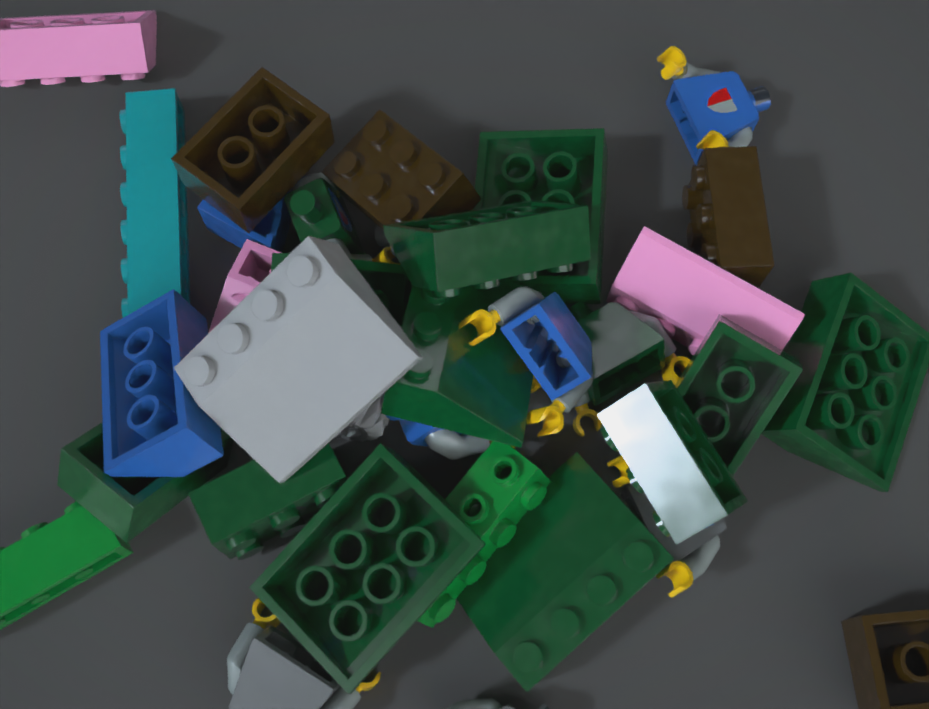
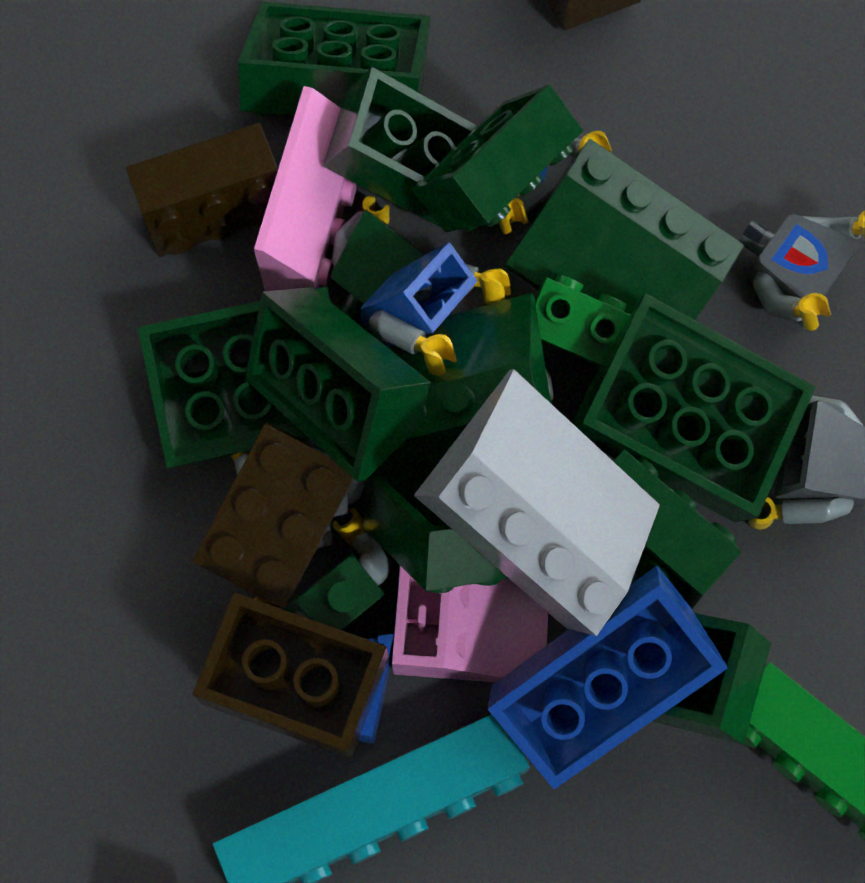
camera: 105 degrees left, 0 degrees up
(710, 105) = (67, 242): torso -> none

